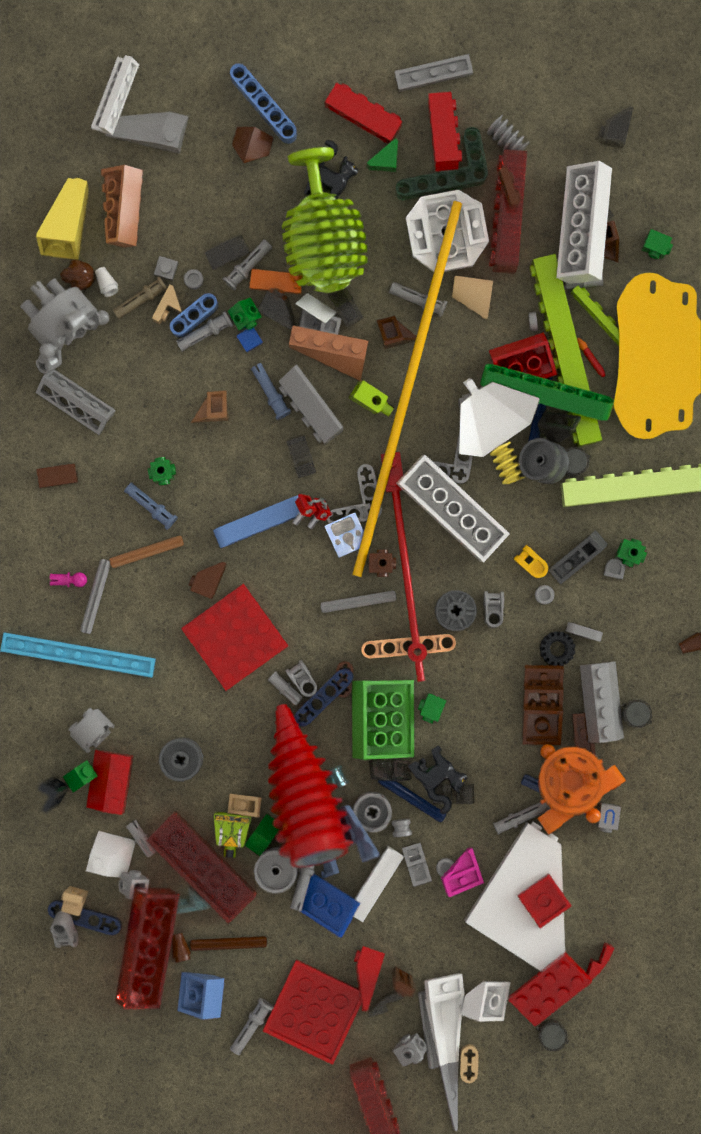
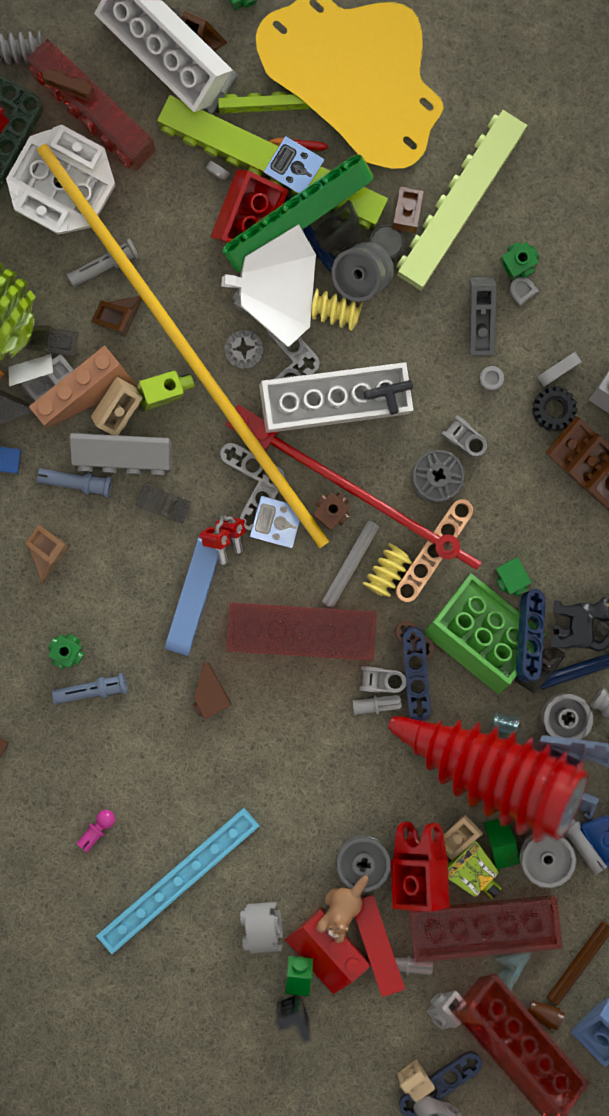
camera: 50 degrees left, 0 degrees up
(95, 596) = (134, 816): light grey axle -> none
(110, 855) = (401, 1012): white slope -> none
(137, 809) = (379, 948): none -> red tile
(144, 769) = (344, 906): none -> medium nougat animal
(146, 551) = (132, 731): medium nougat axle -> none
(205, 797) = (419, 869): none -> red brick
(234, 637) = (286, 713): red plate -> none
(291, 605) = (301, 631): none -> clear red brick
(336, 379) = (116, 407): none -> tan brick
(372, 628) = (388, 571): none -> light yellow piece
(406, 751) = (534, 636): none -> dark blue beam
(427, 427) = (235, 357): none -> light grey gear
(473, 293) = (143, 206): tan slope -> none
(482, 537) = (389, 393): none -> black piece
(537, 568) = (459, 363): yellow plate -> none
(574, 365) = (293, 165): none -> sticker
(605, 457) = (408, 210): none -> plate

